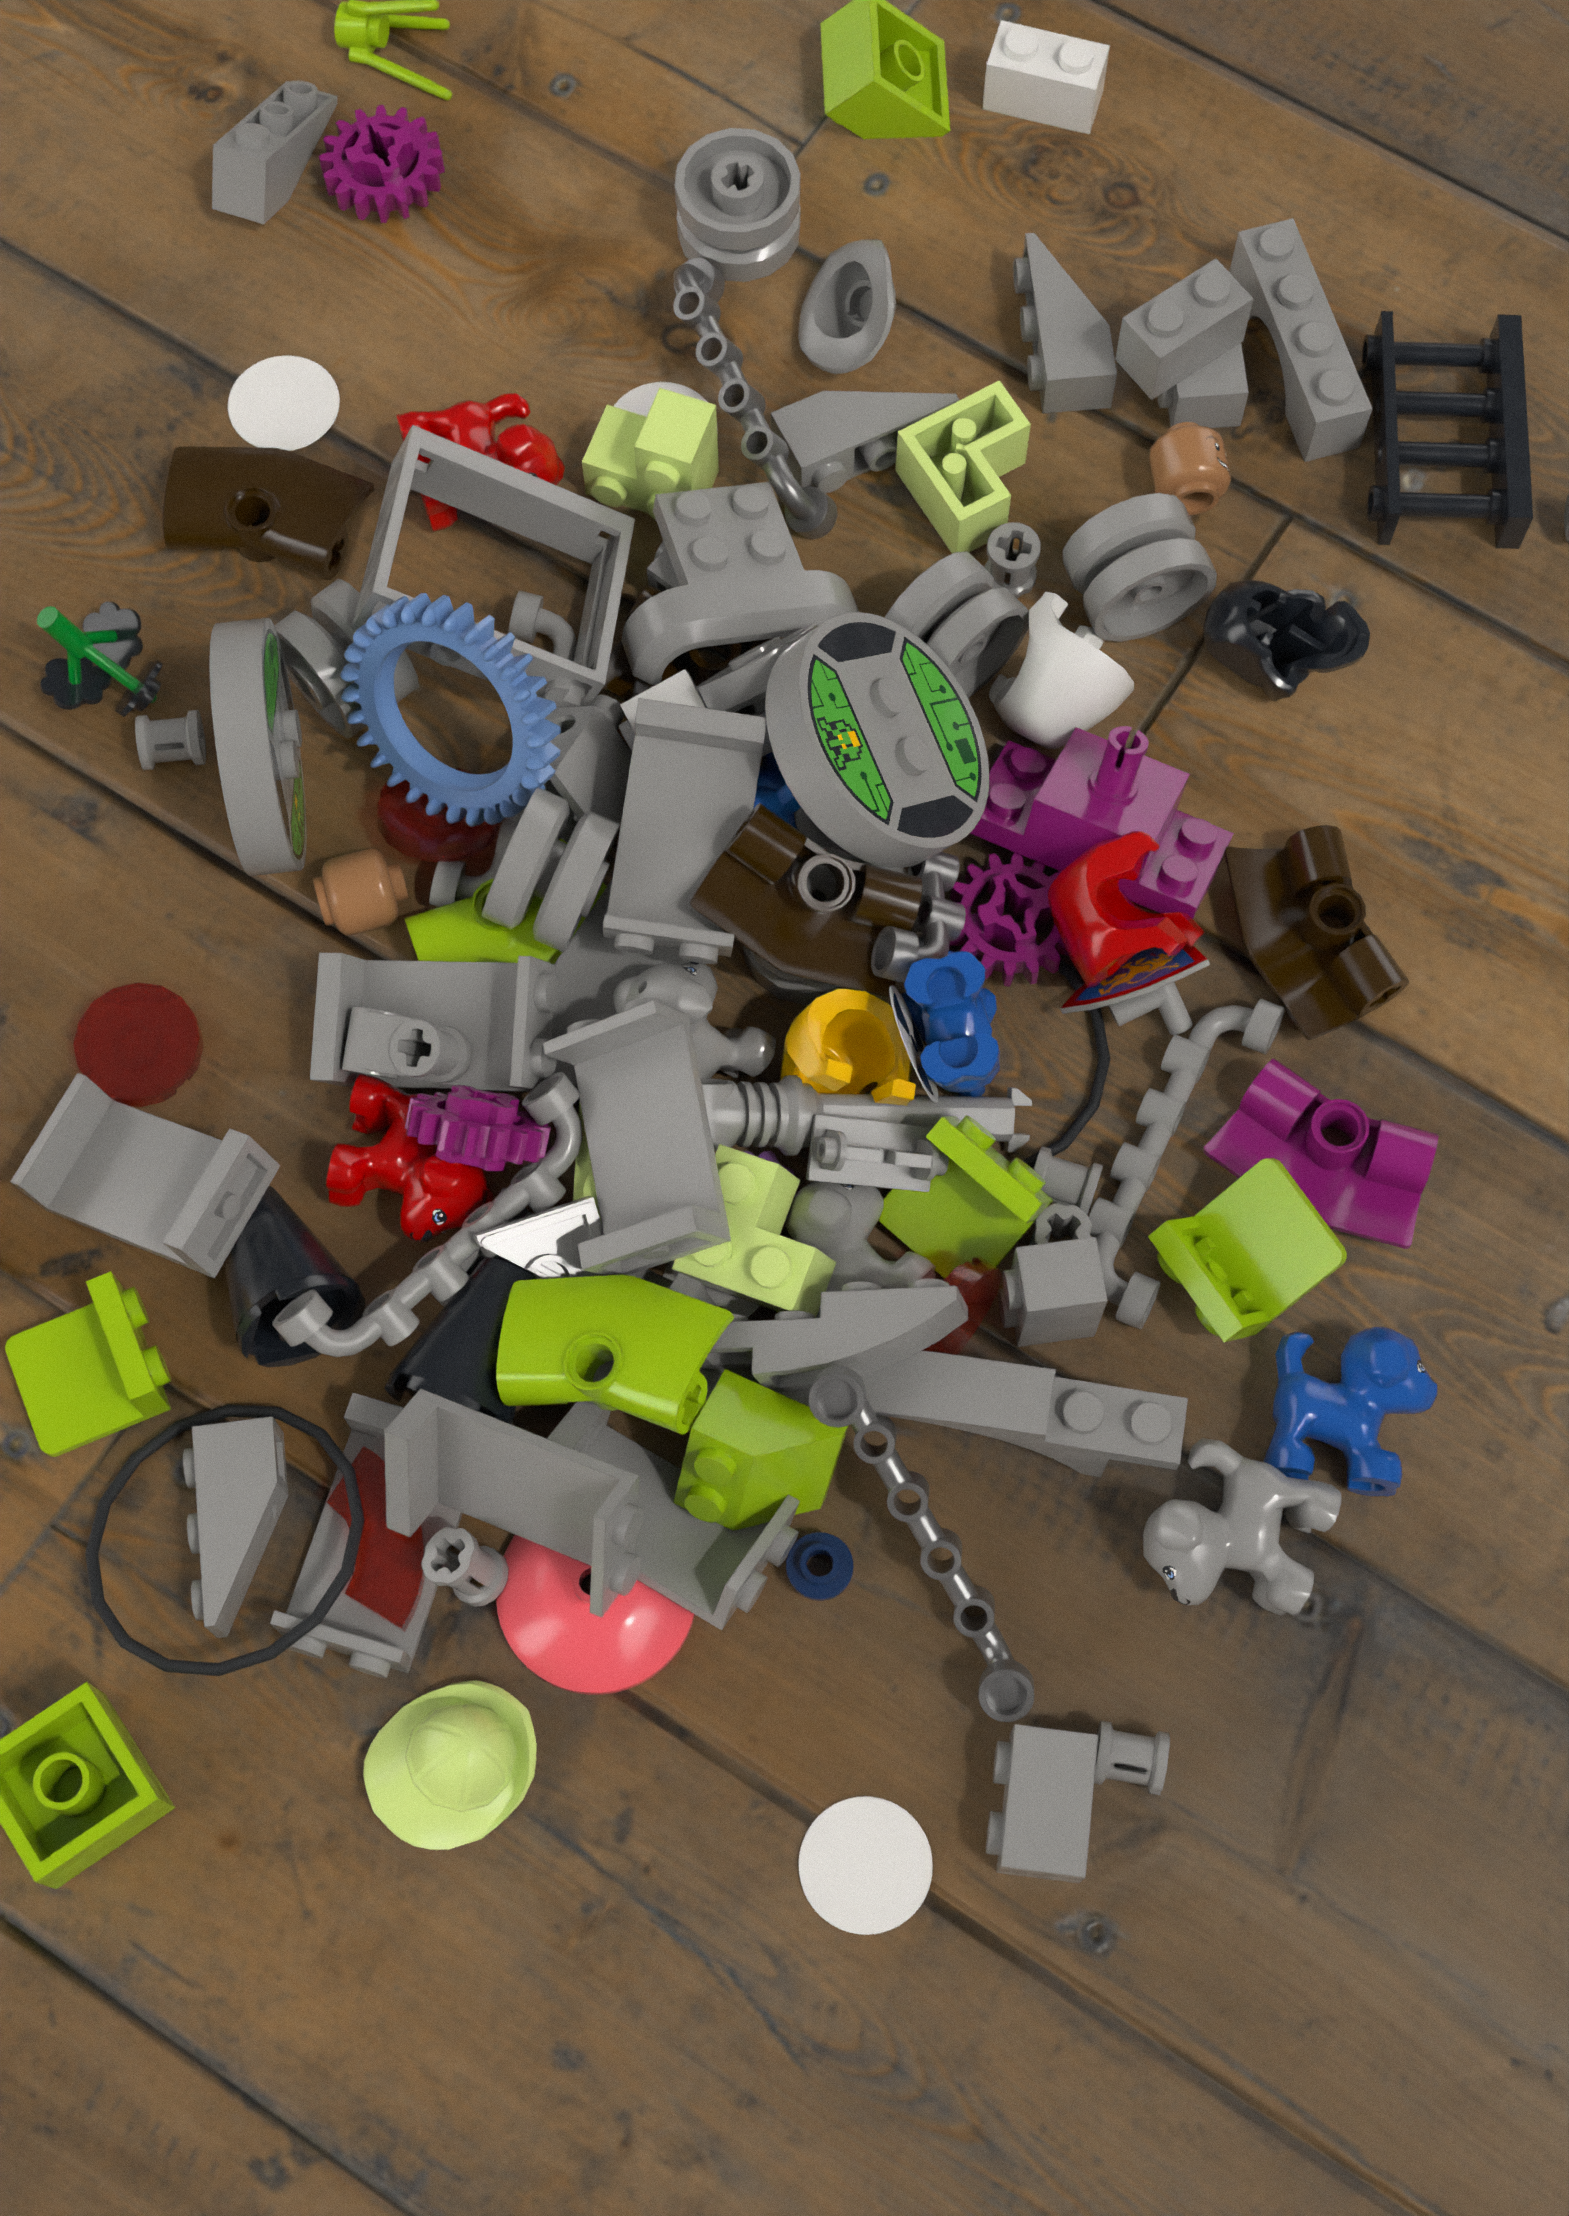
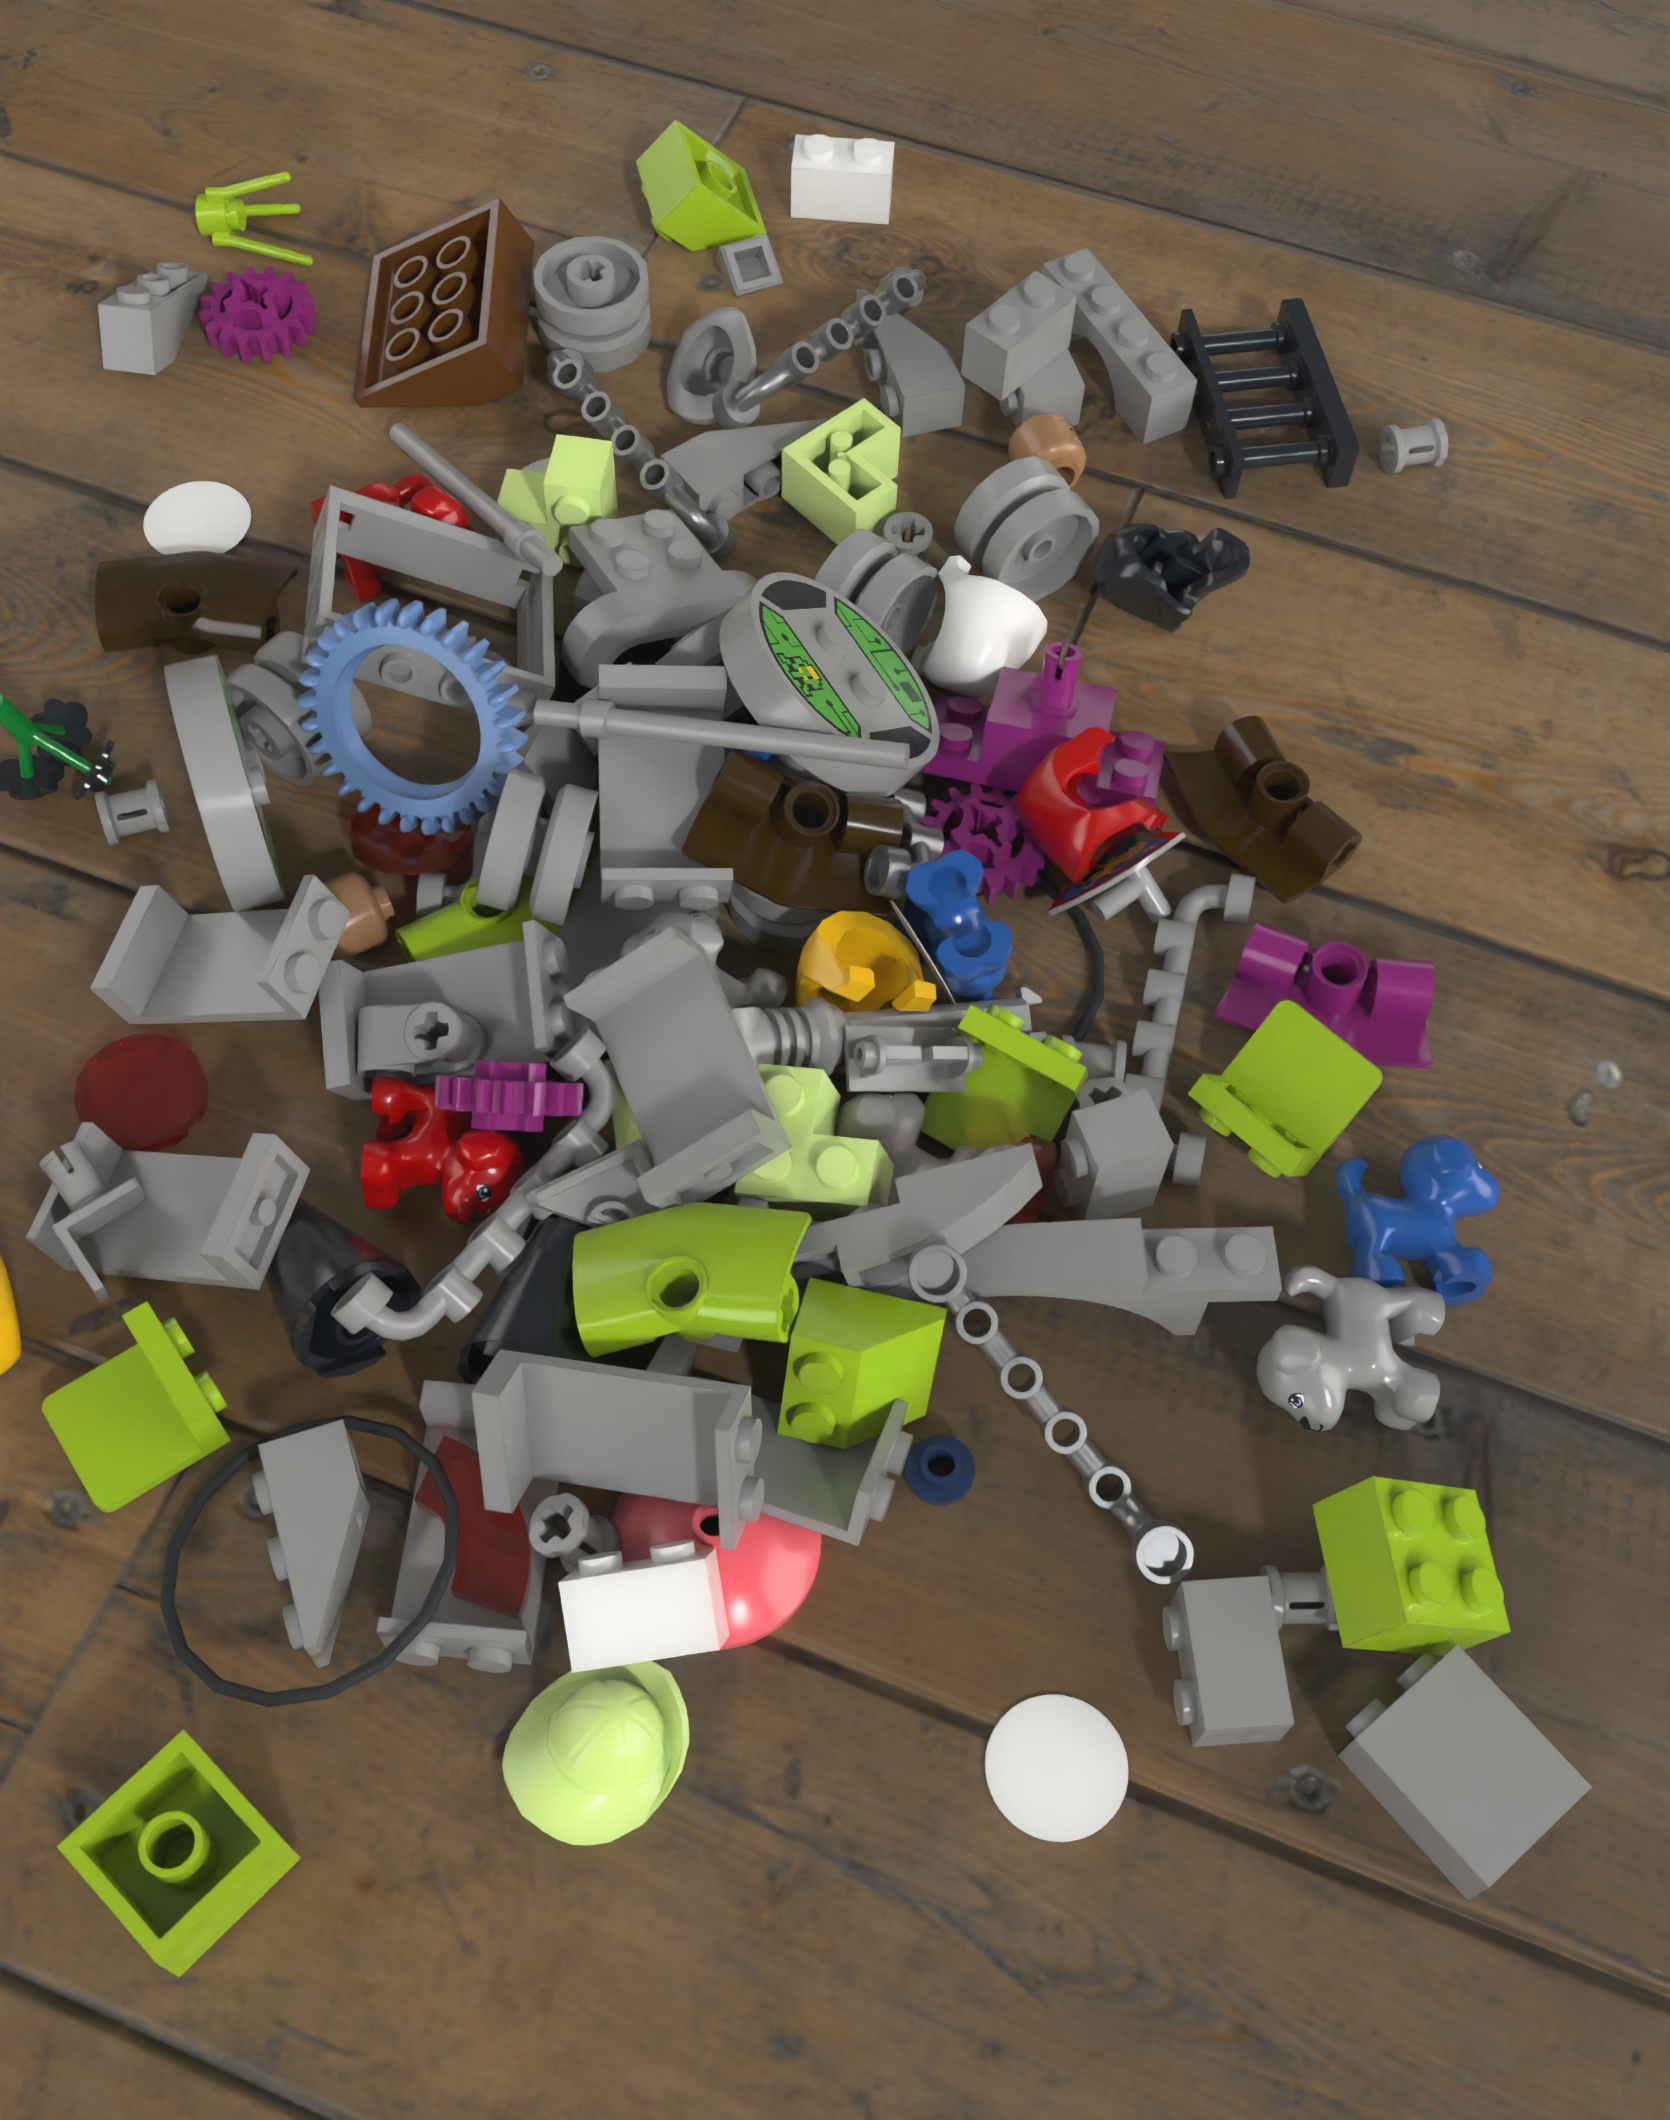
camera: 15 degrees left, 10 degrees down
(72, 1162) = (89, 1203): none -> light grey bracket
(230, 927) = (220, 964): none -> light grey panel
(513, 1649) = (643, 1607): none -> white brick
(583, 192) = (448, 314): none -> reddish brown slope
(601, 499) = (519, 536): none -> light grey bar
(635, 751) = (602, 720): none -> light grey bar
(921, 173) = (749, 266): none -> light grey slope
(1074, 238) = (897, 292): none -> flat silver bar
(1235, 1754) = (1410, 1567): none -> lime brick
(1236, 1947) = (1461, 1770): none -> light grey brick

